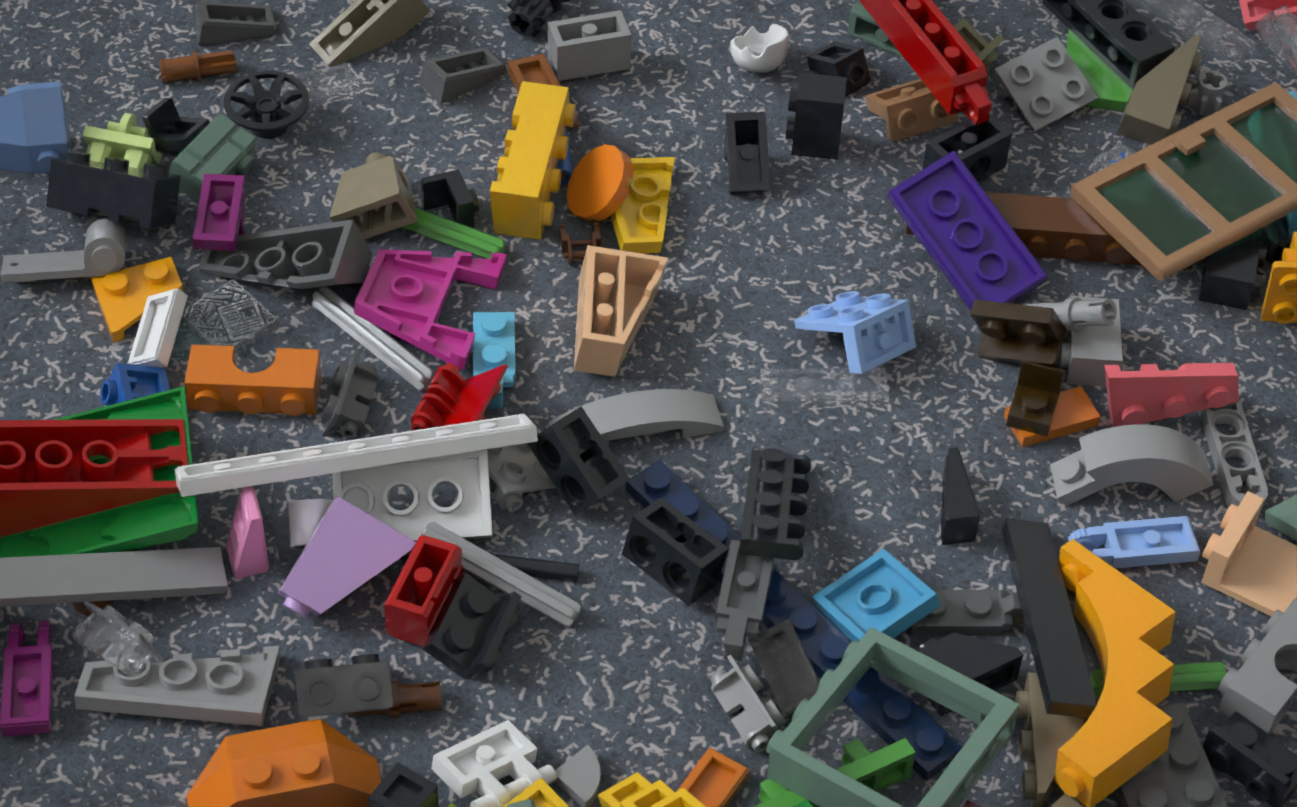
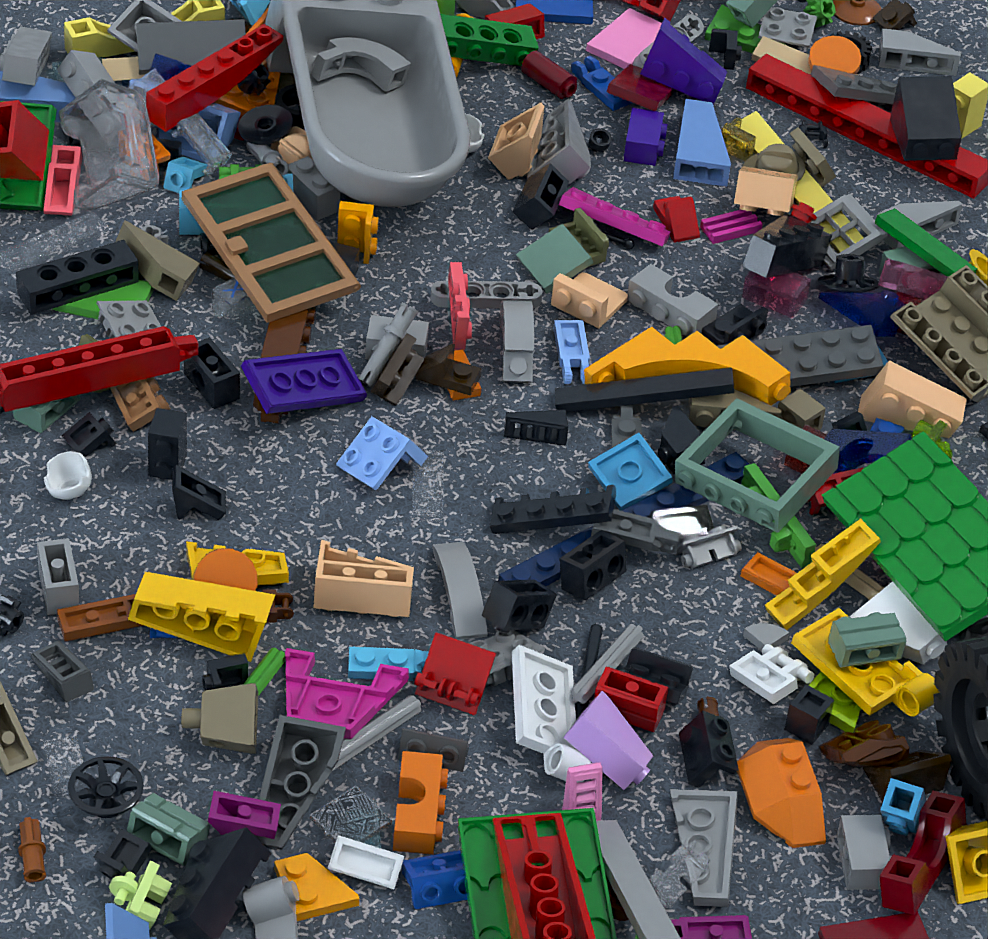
camera: 90 degrees left, 5 degrees down
(354, 454) = (536, 714): white tile -> none

